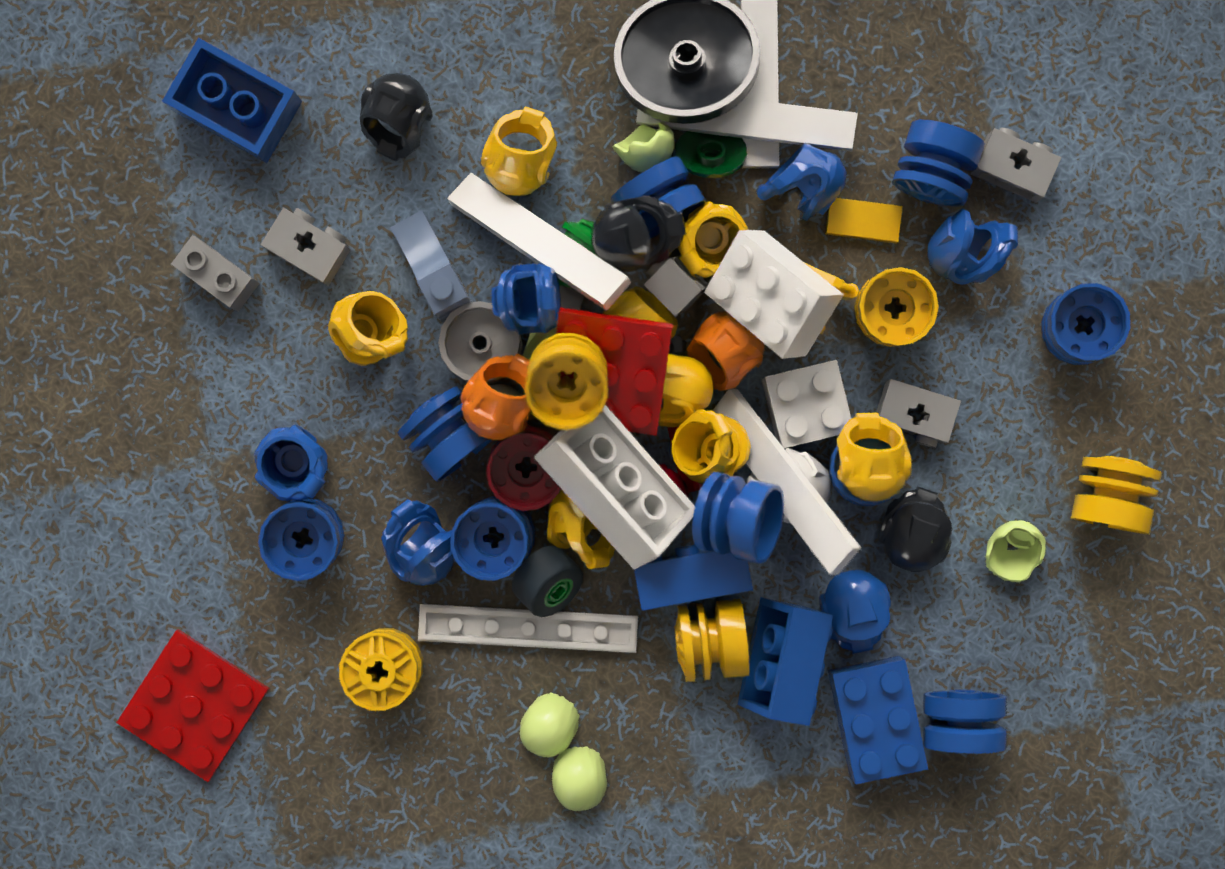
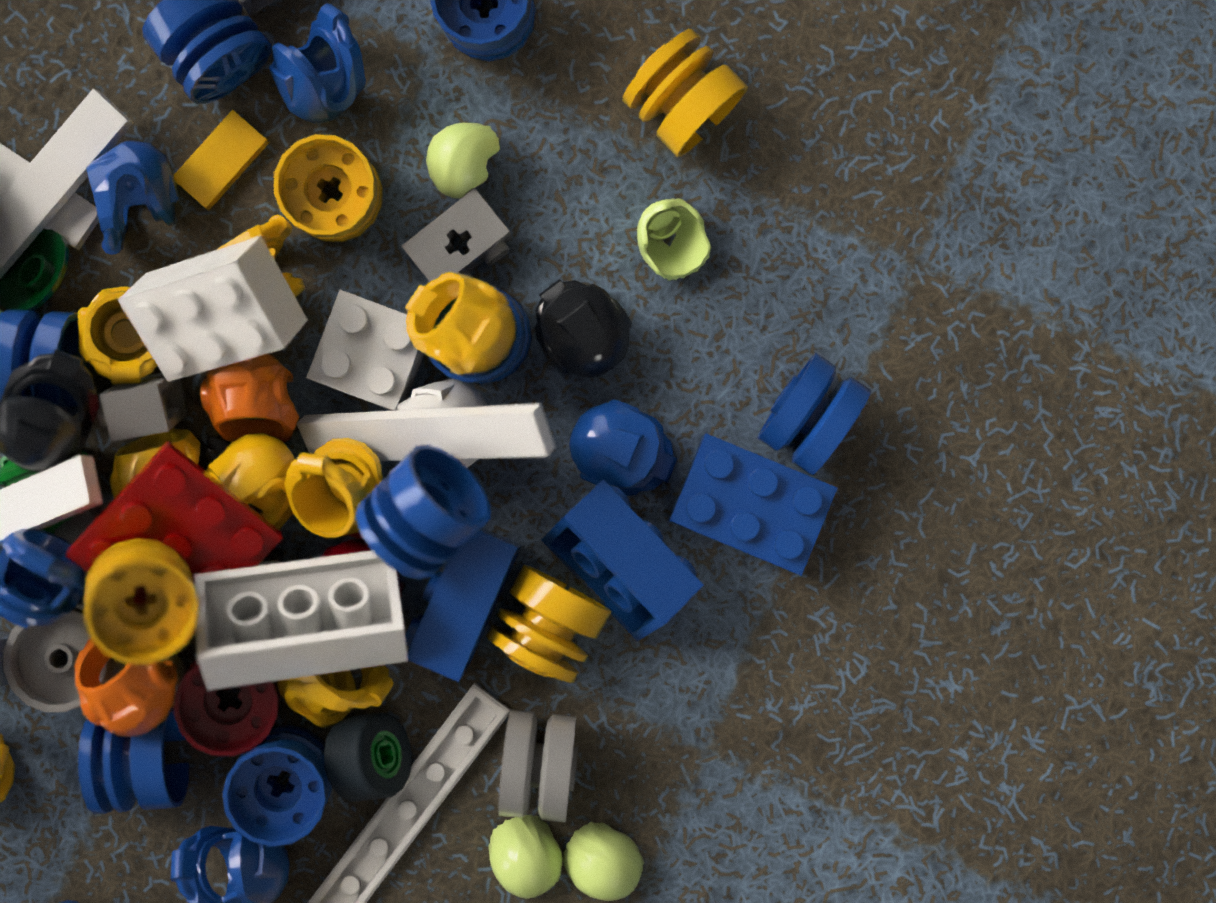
camera: 60 degrees left, 0 degrees up
(620, 701) = (538, 765): none -> light grey wheel
(973, 377) = (460, 157): none -> yellowish green hair

